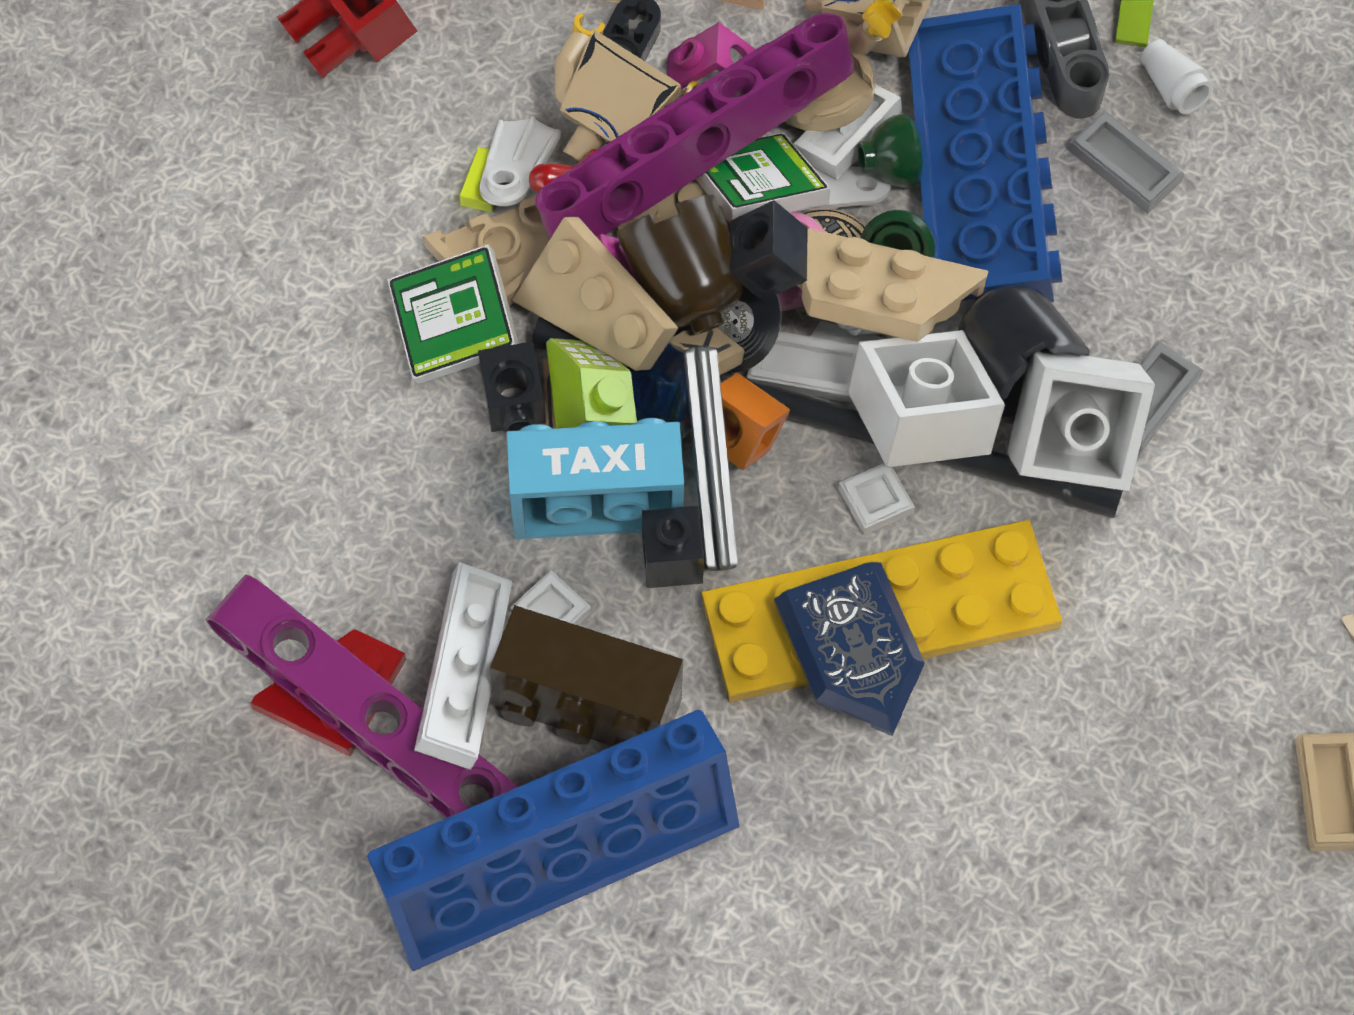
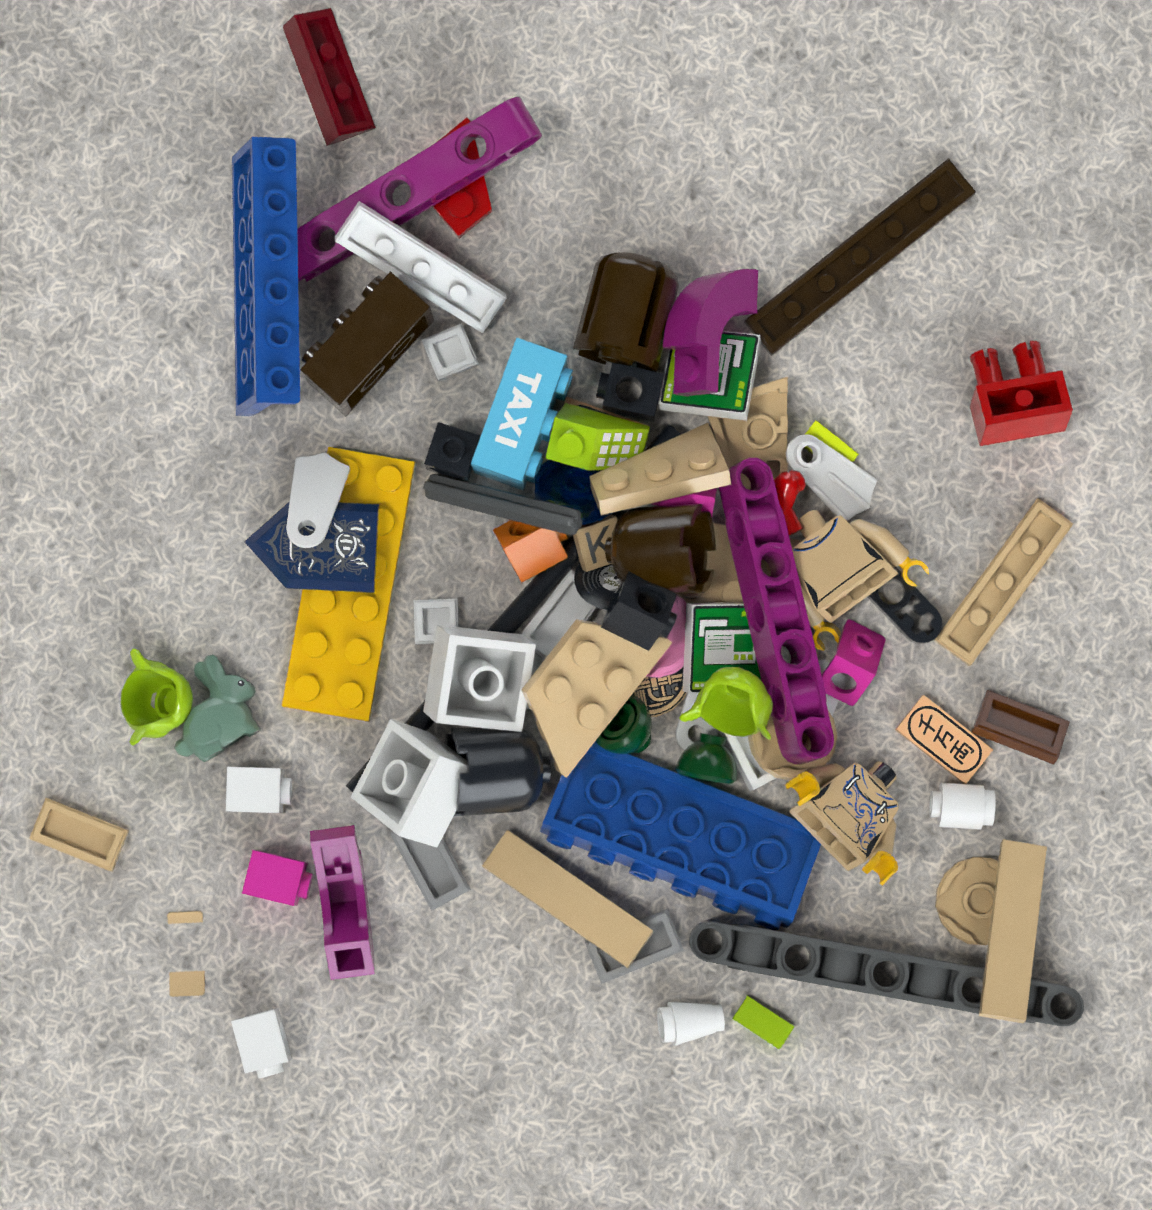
camera: 120 degrees right, 20 degrees up
(251, 225) = (860, 256): none -> dark brown tile
(260, 895) = (328, 75): none -> dark red slope
(406, 326) = (698, 323): none -> magenta arch
(419, 416) = (626, 311): none -> dark brown cylinder
(801, 667) = (314, 497): none -> white piece
(820, 129) = (733, 703): none -> lime hair
(1114, 238) = (567, 899): none -> tan tile
(1115, 681) = (221, 717): none -> sand green animal
(1133, 741) = (172, 698): none -> lime hair
(1174, 604) = (257, 790): none -> white brick
(1254, 453) = (343, 902): none -> magenta arch
(1261, 541) = (277, 878): none -> dark pink brick

